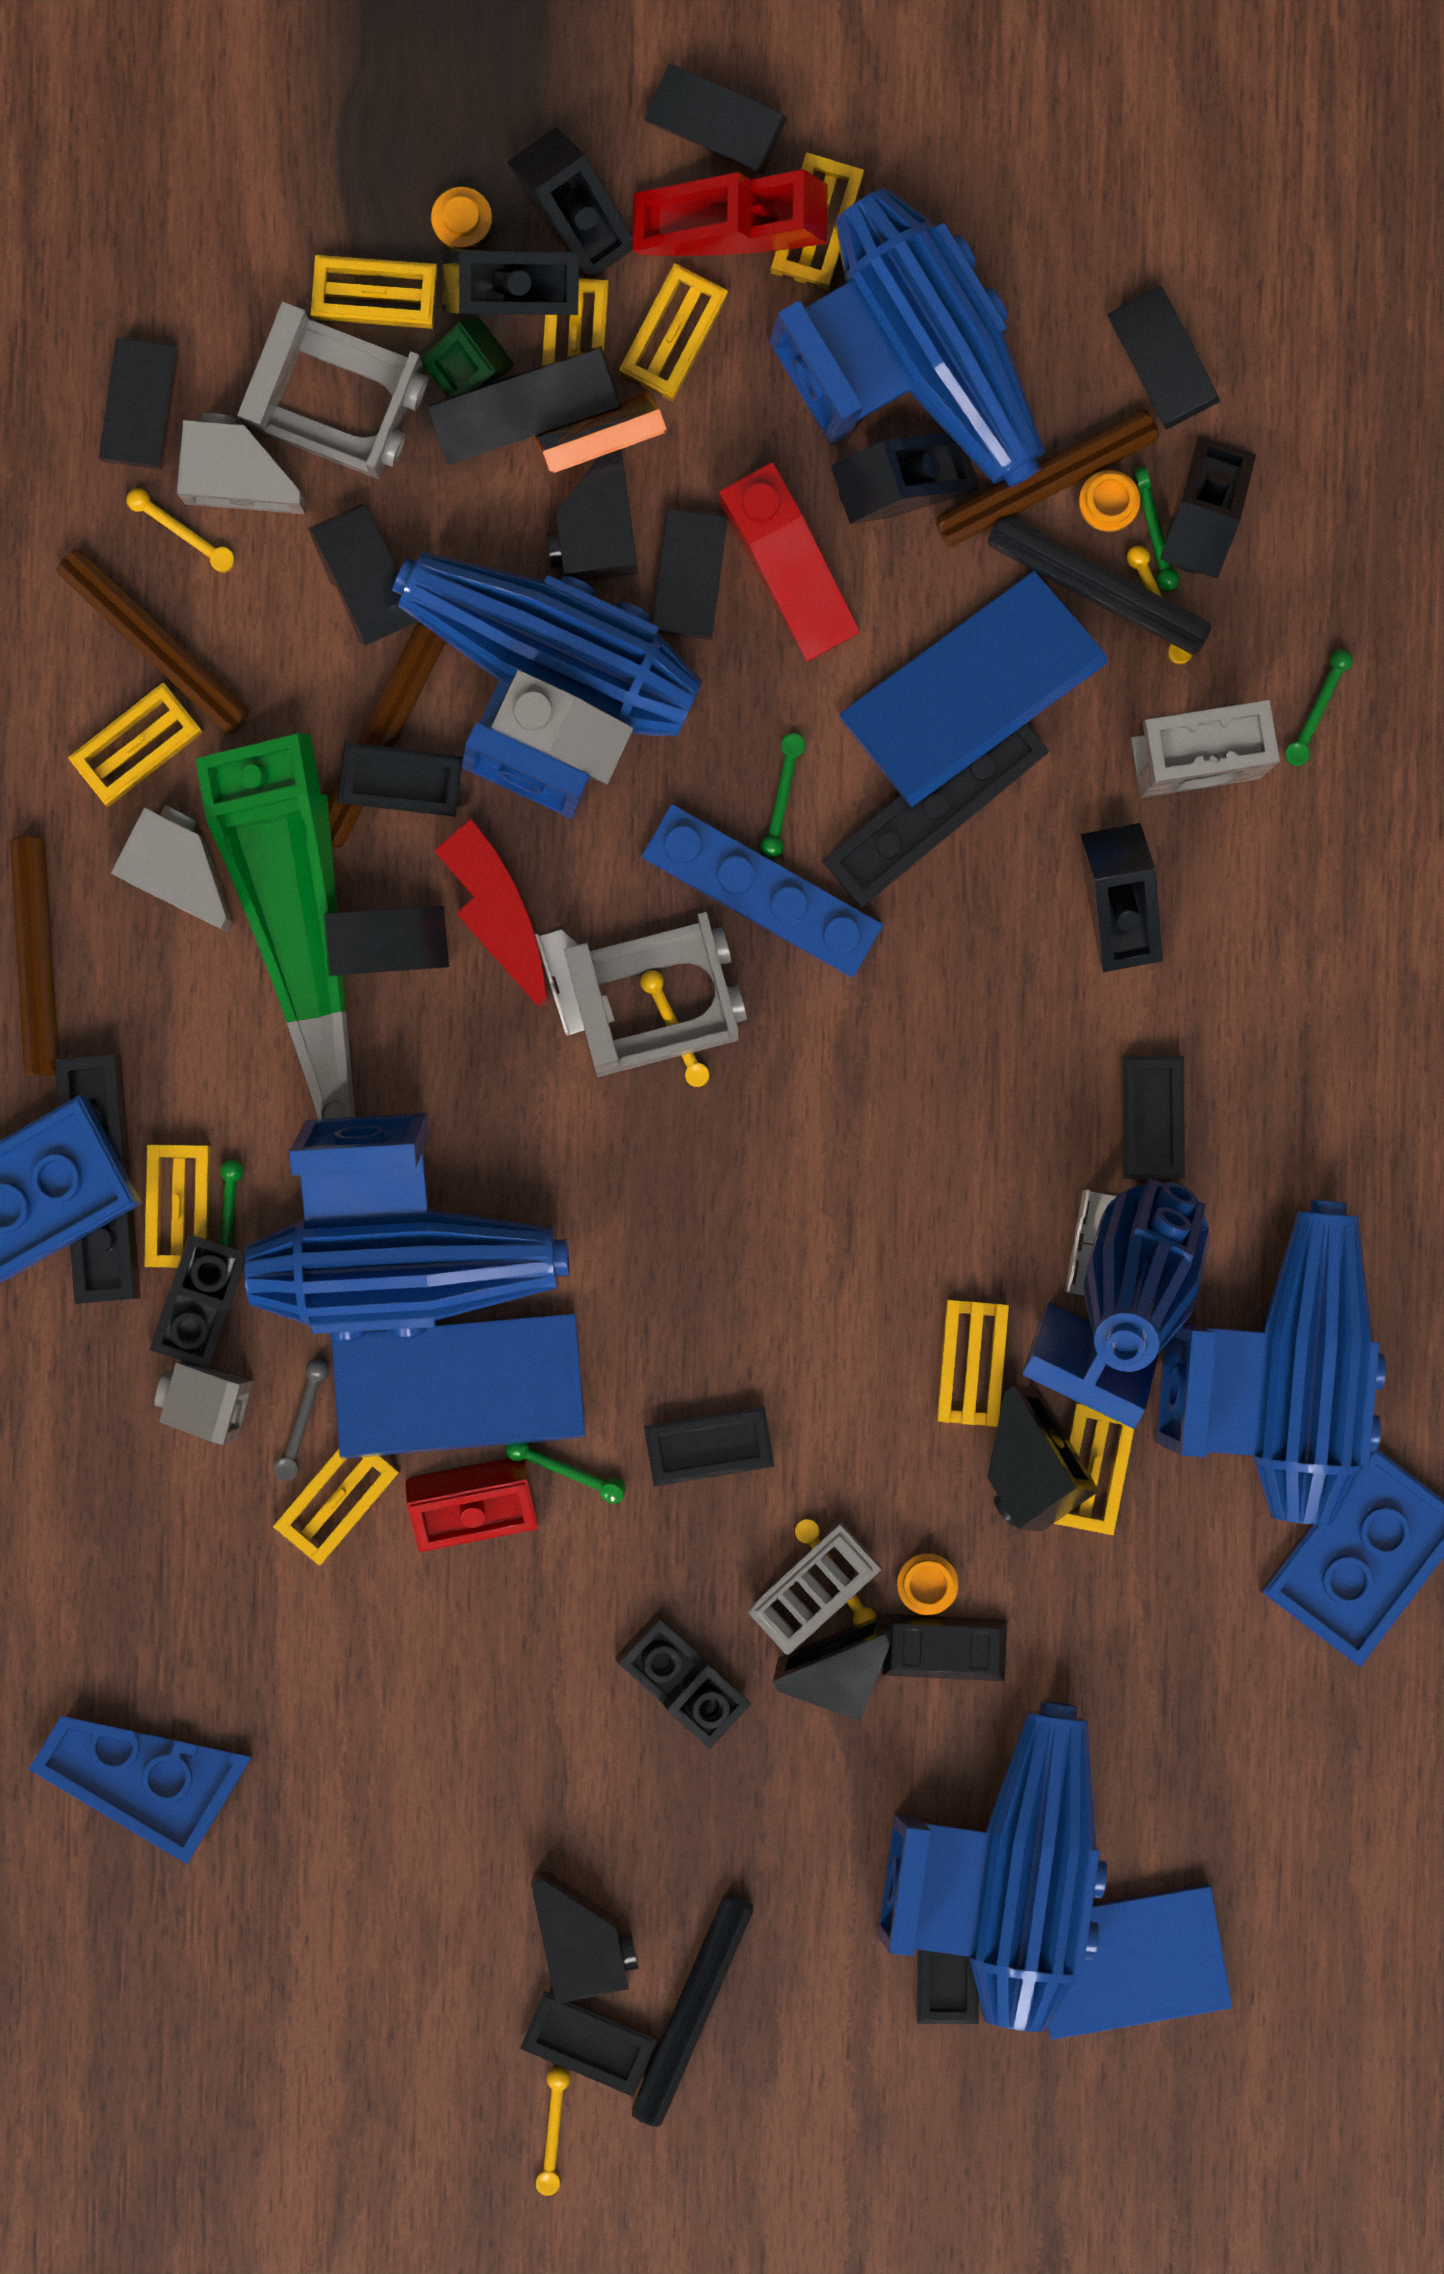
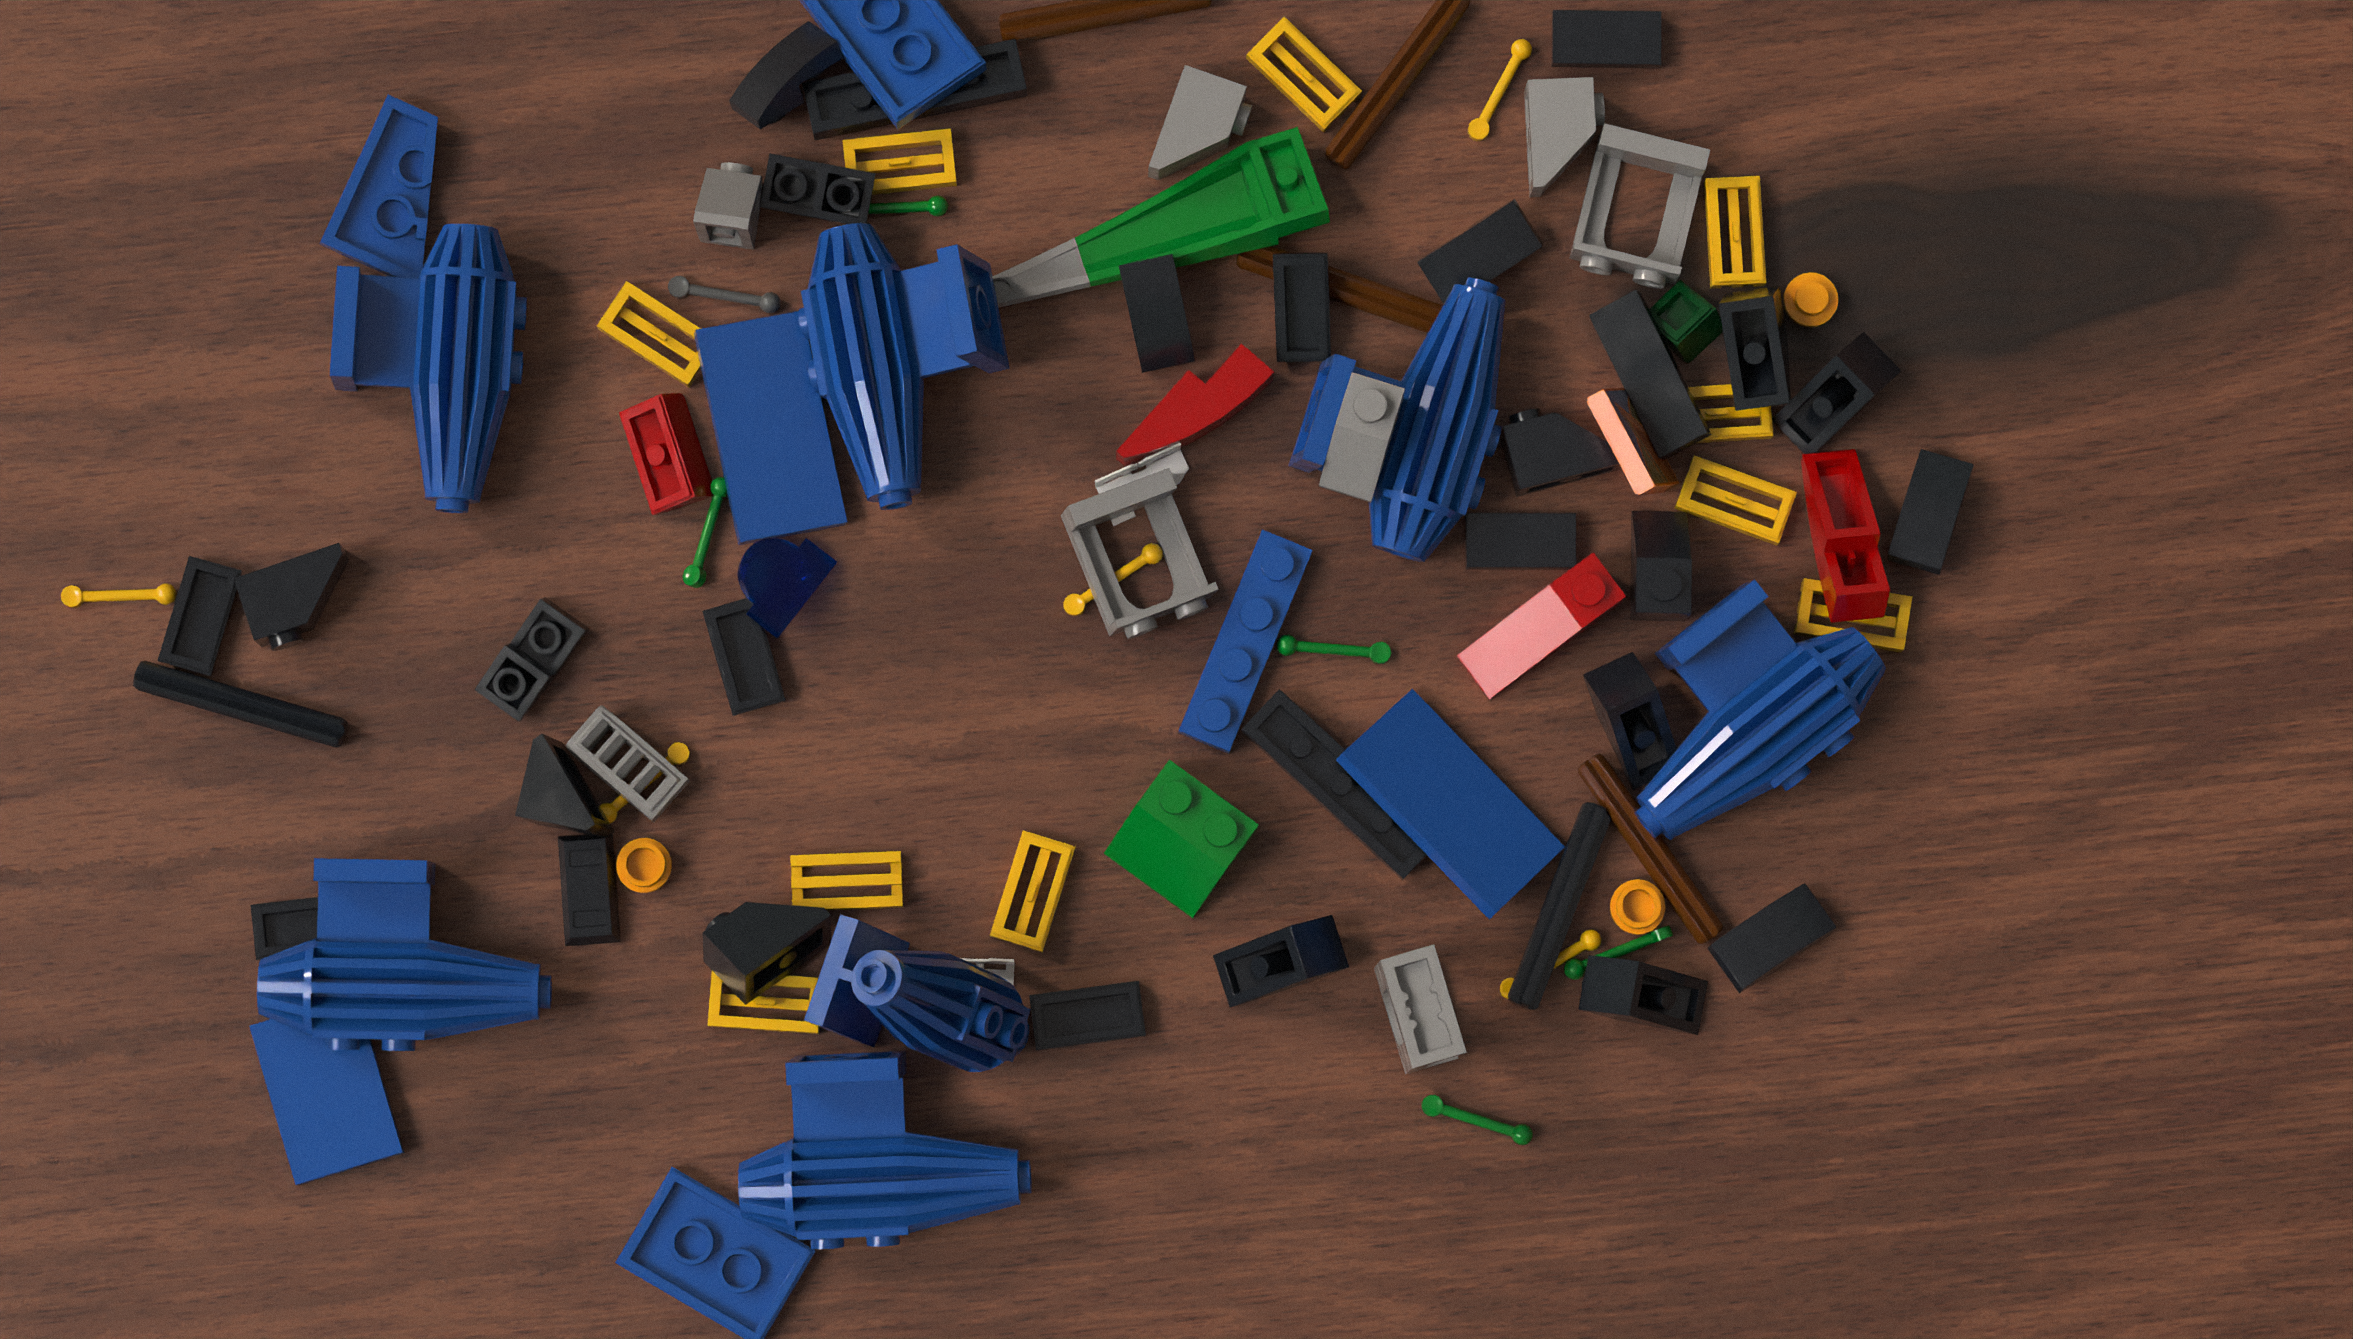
camera: 75 degrees right, 5 degrees down
(70, 1335) = (774, 82): none -> black slope
(318, 1735) = (445, 342): none -> blue piece
(631, 1395) = (781, 579): none -> clear blue piece
(737, 423) = (1660, 566): none -> black slope
(962, 1139) = (1018, 936): none -> yellow tile
(974, 989) = (1181, 839): none -> green slope

